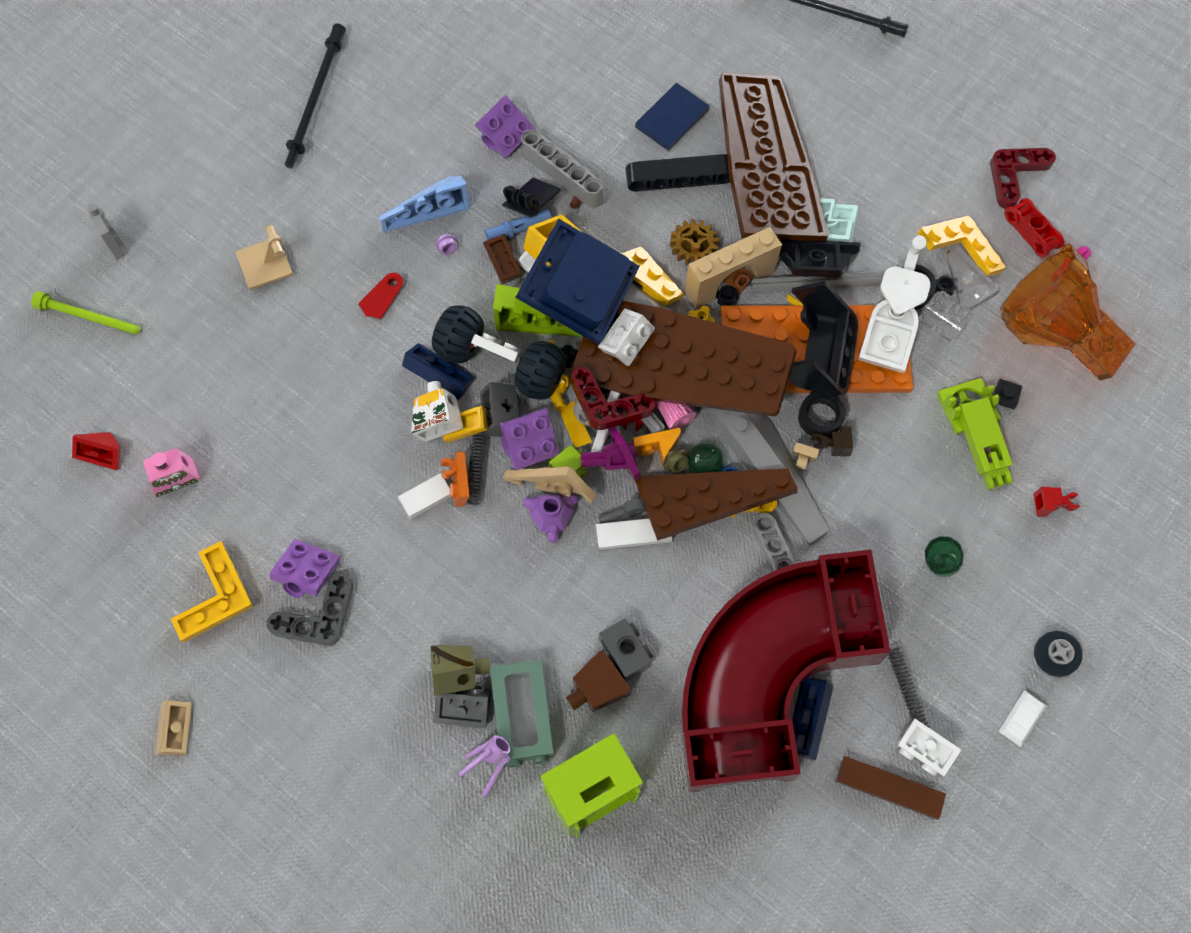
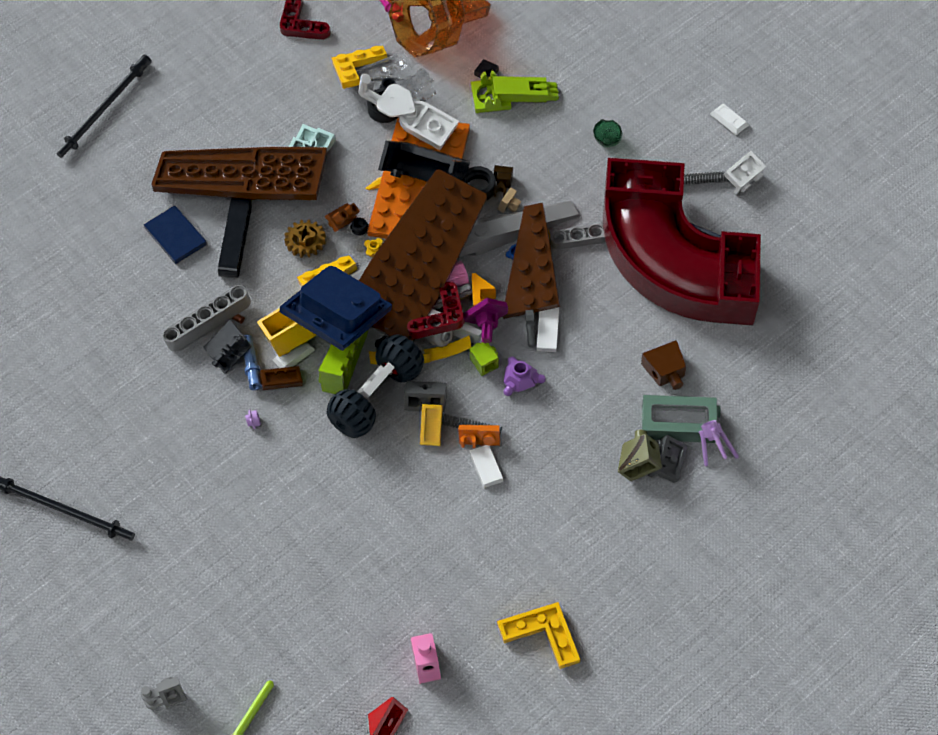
camera: 75 degrees left, 10 degrees down
(173, 728) = (652, 677): tan slope -> none
(264, 261) = (229, 566): tan plate -> none
(304, 569) = (535, 558): medium lavender plate -> none
(317, 625) = (583, 556): dark grey beam -> none
(381, 296) = (290, 477): red piece -> none
(433, 368) = (373, 443): dark blue slope -> none
(435, 413) = (417, 442): torso -> none
(436, 201) = (207, 413): light blue wedge -> none
(503, 127) = (150, 356): medium lavender plate -> none
(529, 439) = (457, 379): medium lavender plate -> none
(553, 480) = (497, 367): tan wing -> none
(586, 776) = (745, 373): lime container -> none
(627, 336) = (391, 286): white bracket -> none
(627, 664) = (633, 349): dark grey brick -> none
(676, 461) = (497, 282): olive plate -> none
(705, 458) = (498, 266): clear green hair -> none
(755, 253) = (340, 202): tan arch -> none
(790, 282) = (361, 163): light grey axle -> none
(818, 257) = (343, 159): black wing -> none
(891, 787) = (766, 203): reddish brown tile -> none
(1034, 227) = (354, 20): red piece -> none
(1051, 499) = (576, 65): red piece -> none
(1065, 647) = (688, 87): black wheel -> none

